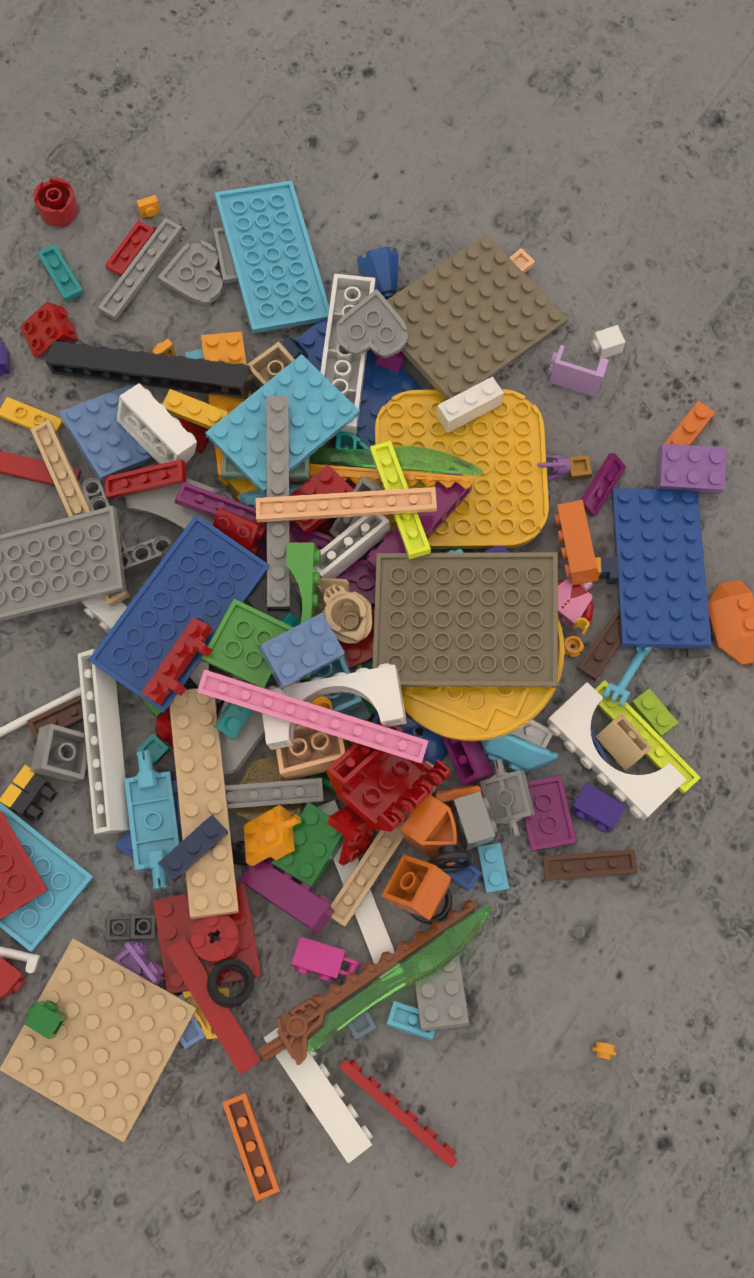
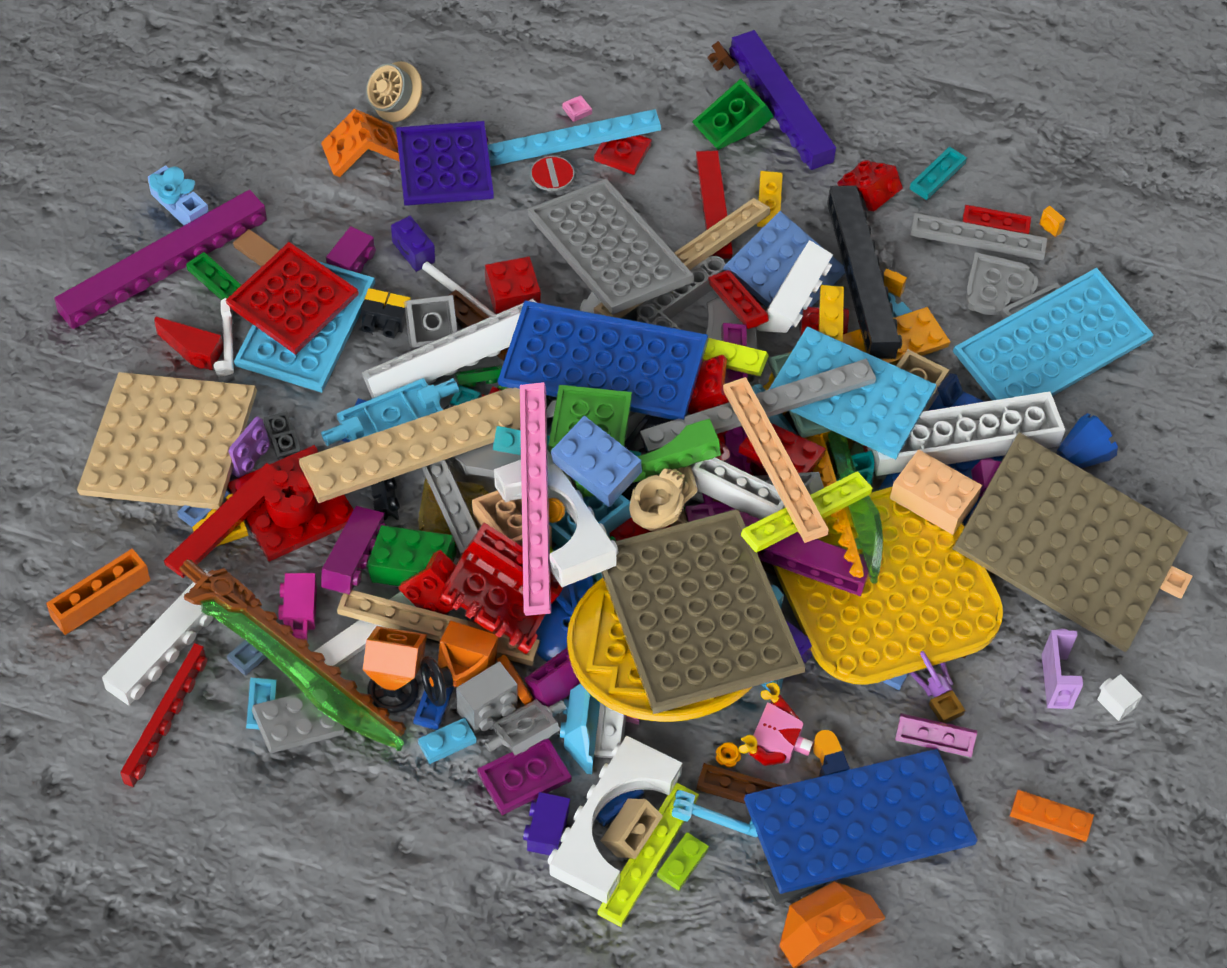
camera: 70 degrees right, 15 degrees down
(43, 668) = (511, 283): none -> red brick
(45, 1018) = (171, 384): green brick -> none
(56, 202) = (1013, 143): red brick -> none
(131, 727) = (469, 377): none -> green plate
(177, 660) = (542, 367): red hinge -> none
(193, 848) = (367, 440): dark blue plate -> none
(220, 497) = (738, 357): none -> neon yellow plate
(243, 969) = (254, 506): black tyre -> none
(270, 835) = (407, 513): light orange plate -> none
(372, 326) = (998, 437): light grey plate -> none
(398, 396) = (935, 491): none -> light nougat brick
(469, 404) = (959, 561): white brick -> none
(577, 541) = (847, 718): orange brick -> none
(589, 865) = (481, 834): reddish brown plate -> none
(604, 1050) = (281, 897): light orange plate -> none
(691, 468) = (997, 821): medium lavender brick -> none

